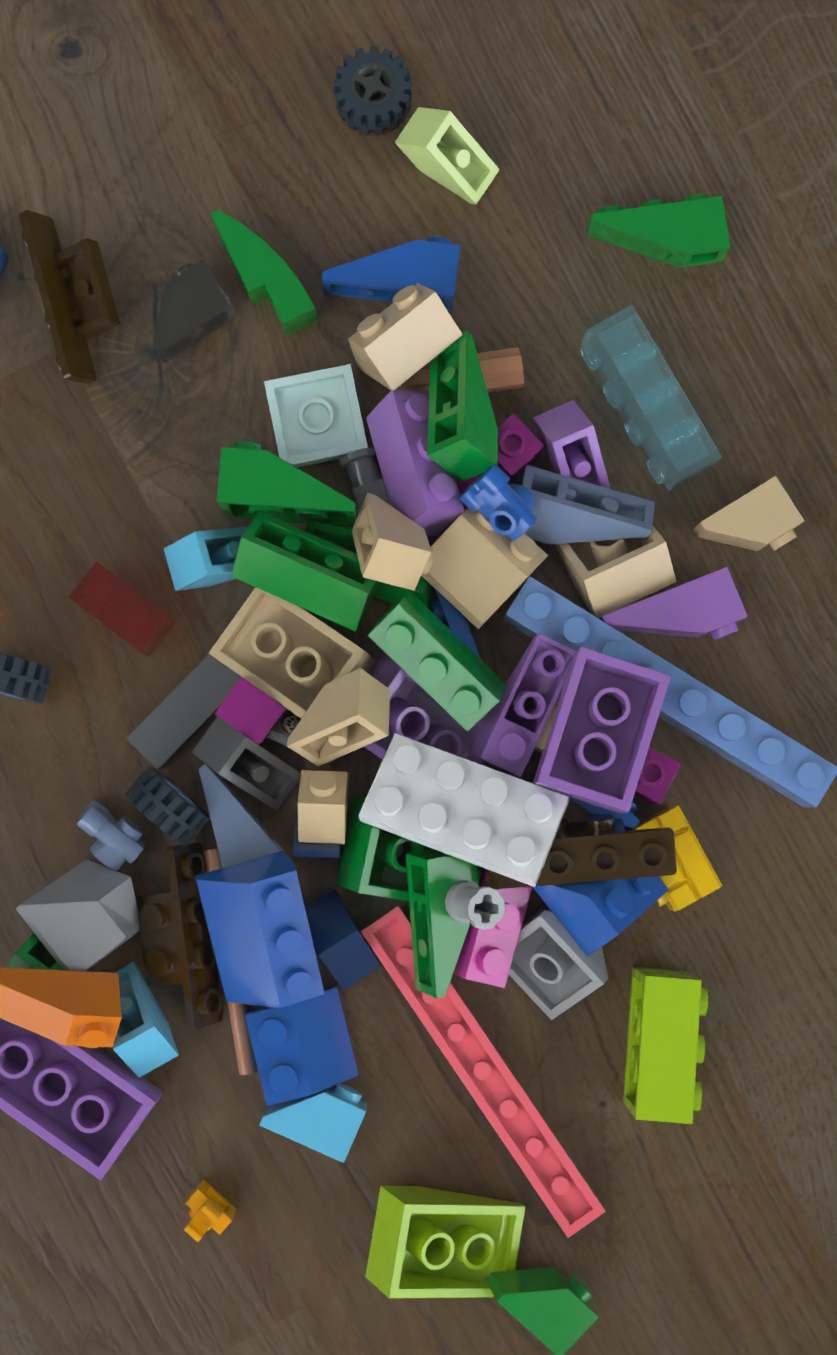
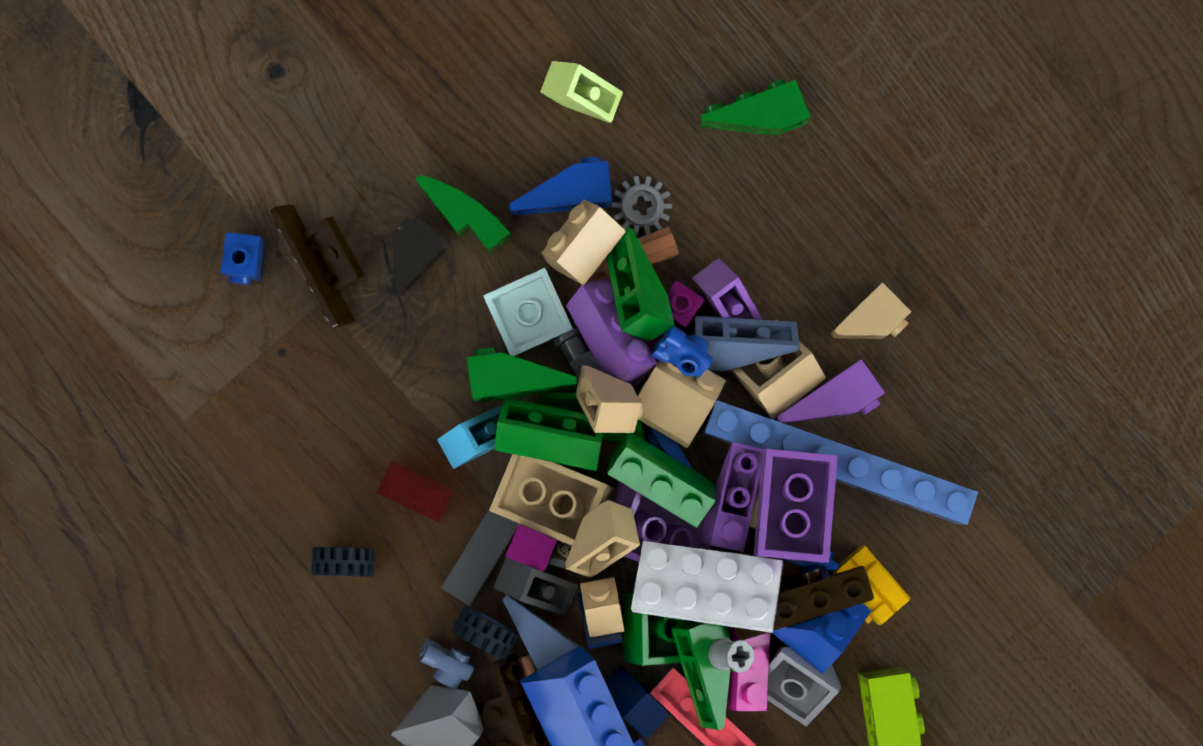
camera: 10 degrees left, 0 degrees up
(368, 76) = (516, 42): black wheel -> none
(503, 304) = (650, 194): none -> light grey gear
(649, 398) = (775, 243): clear light blue brick -> none
(656, 776) = (843, 528): magenta brick -> none

